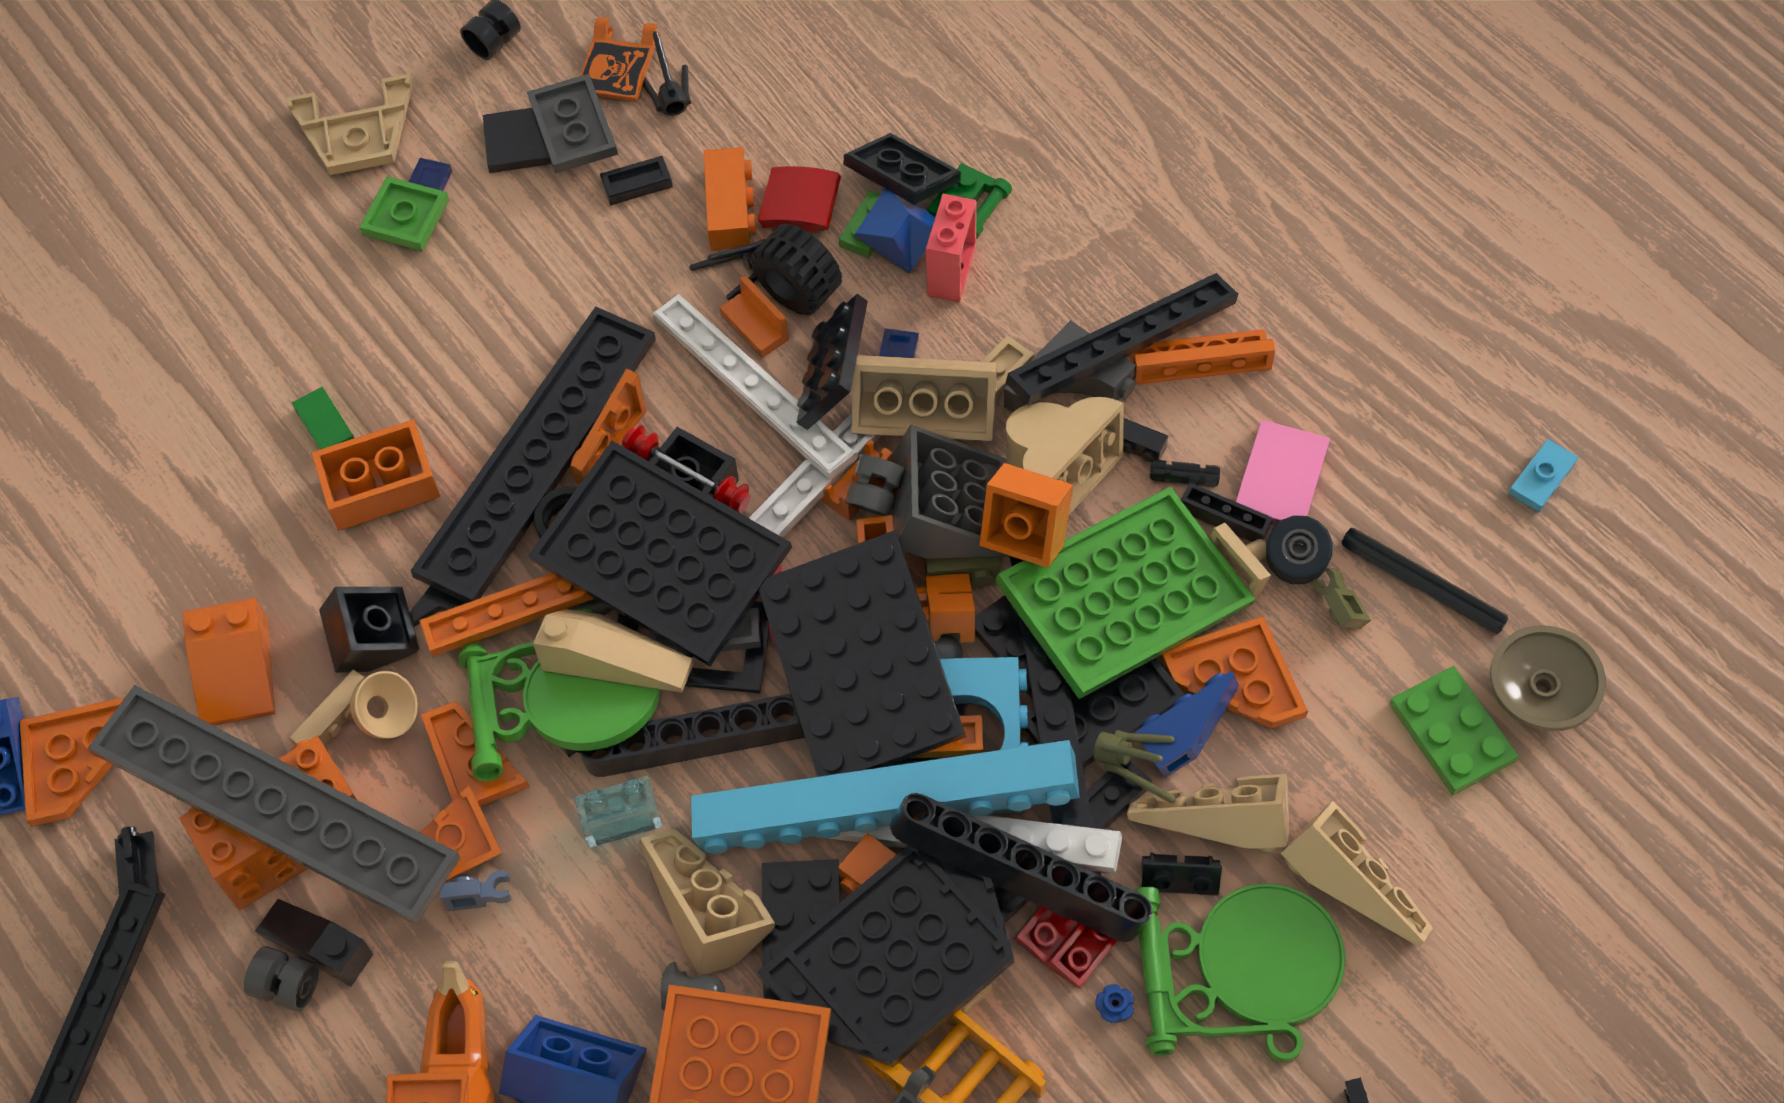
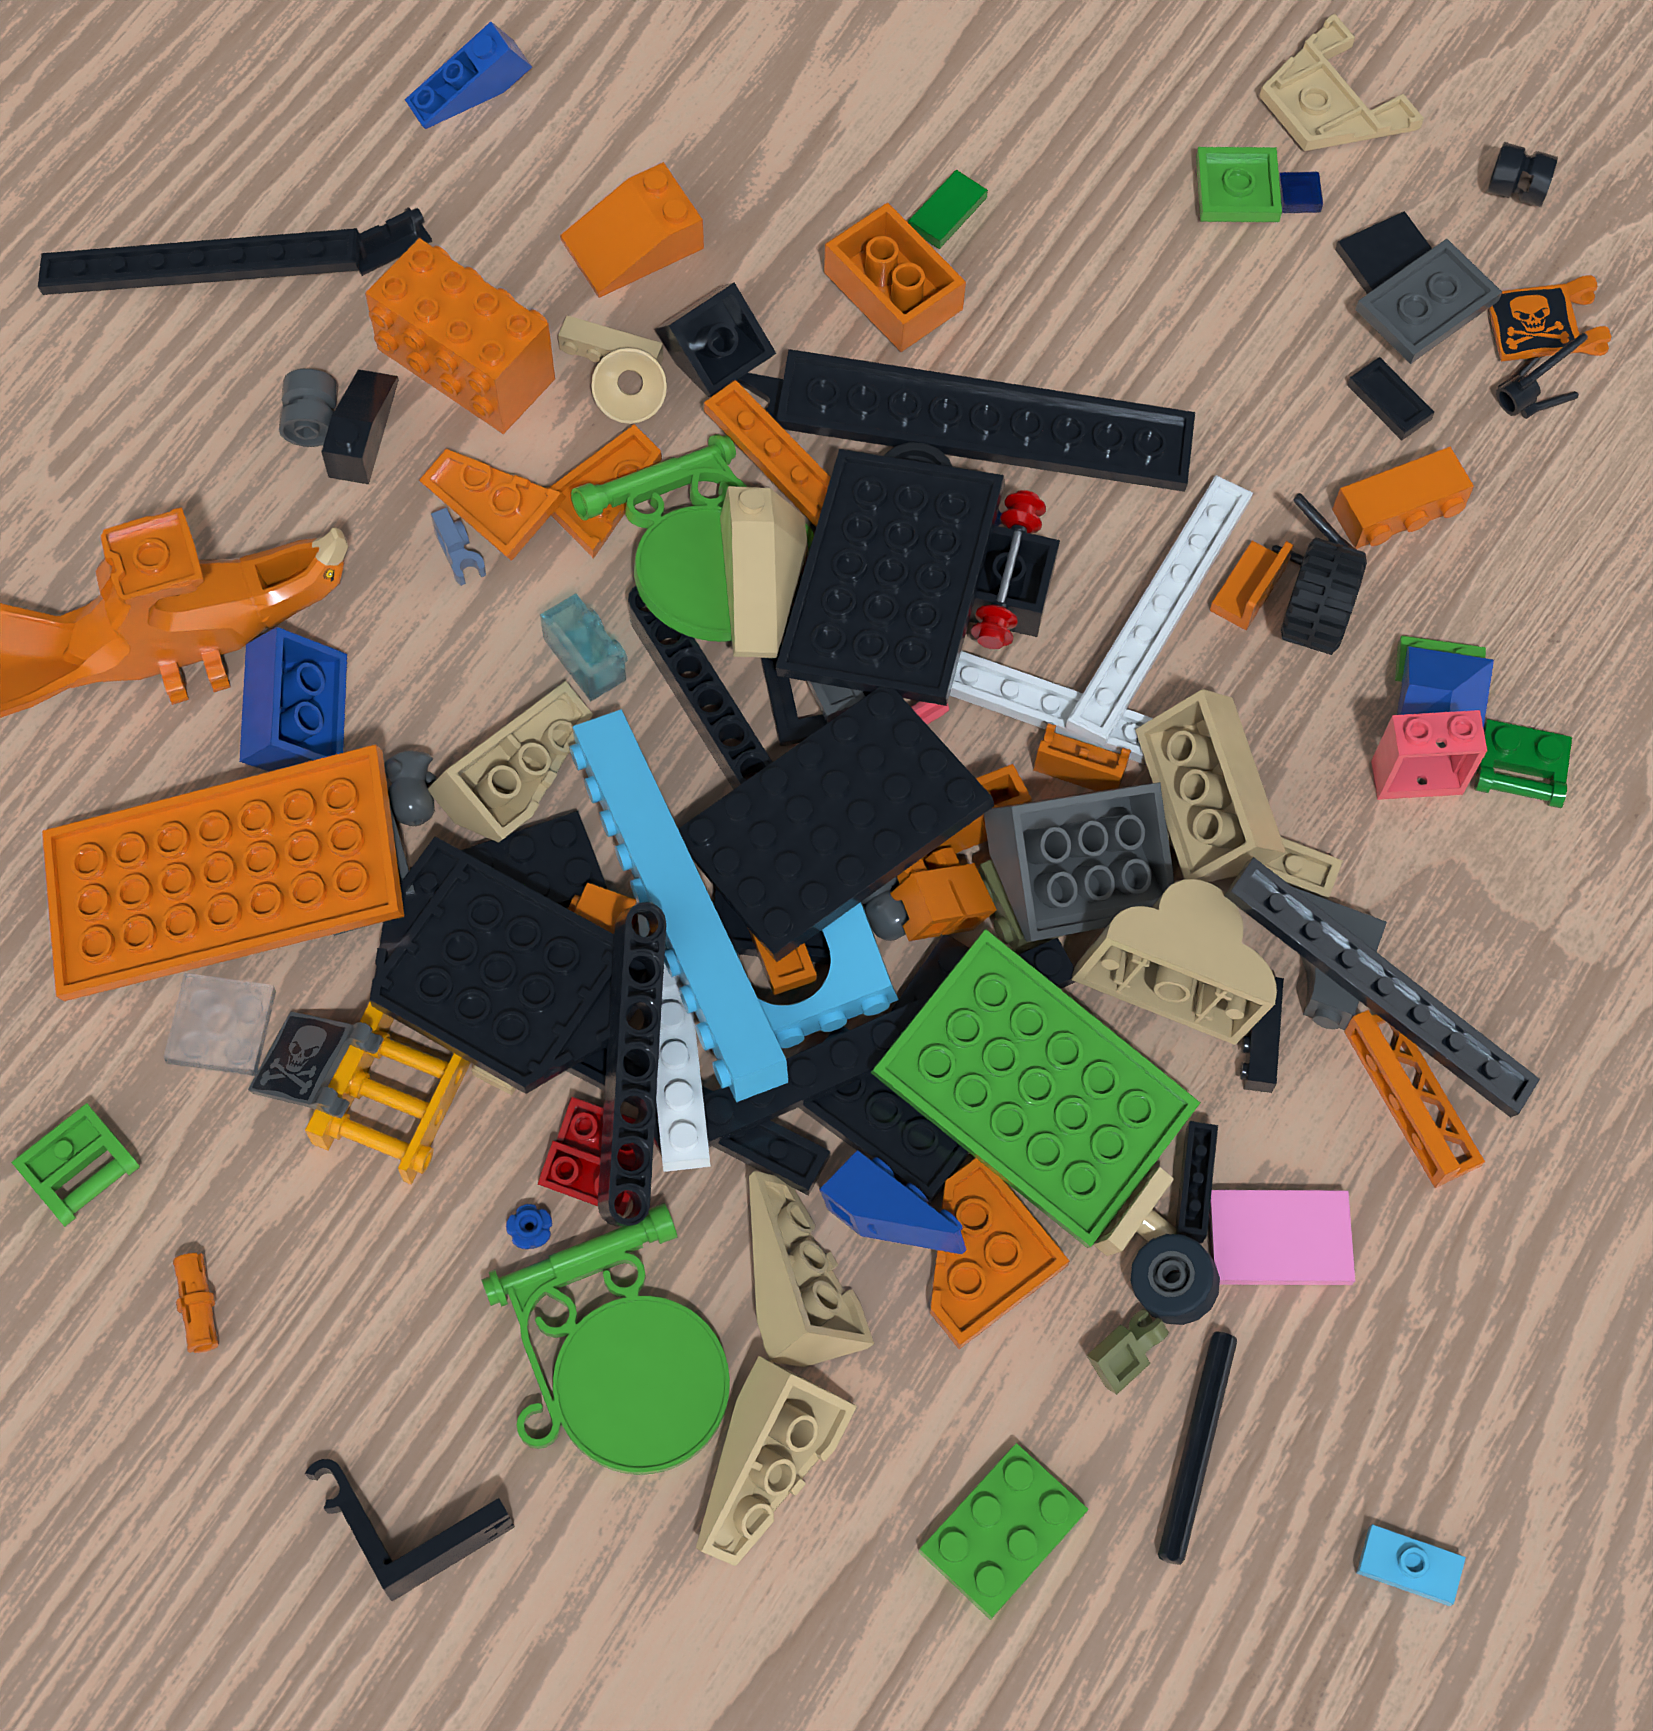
camera: 65 degrees right, 5 degrees up
(57, 760) = (487, 137): orange plate -> none
(275, 804) = (449, 312): dark grey plate -> none
(618, 416) = (1058, 481): orange wing -> none
(799, 198) = (1438, 575): red slope -> none
(831, 361) = (1214, 671): black plate -> none
(871, 497) = (1046, 771): dark grey wheel -> none
(899, 343) = (1281, 750): clear blue tile -> none
(902, 168) = (1526, 670): black tile -> none
(1025, 515) = (1061, 929): orange brick -> none
(1118, 749) = (822, 1136): olive plant -> none
(1185, 472) = (1238, 1121): black axle -> none
(1194, 876) = (701, 1236): black hinge -> none
(1559, 663) = (1125, 1597): dark tan dish -> none

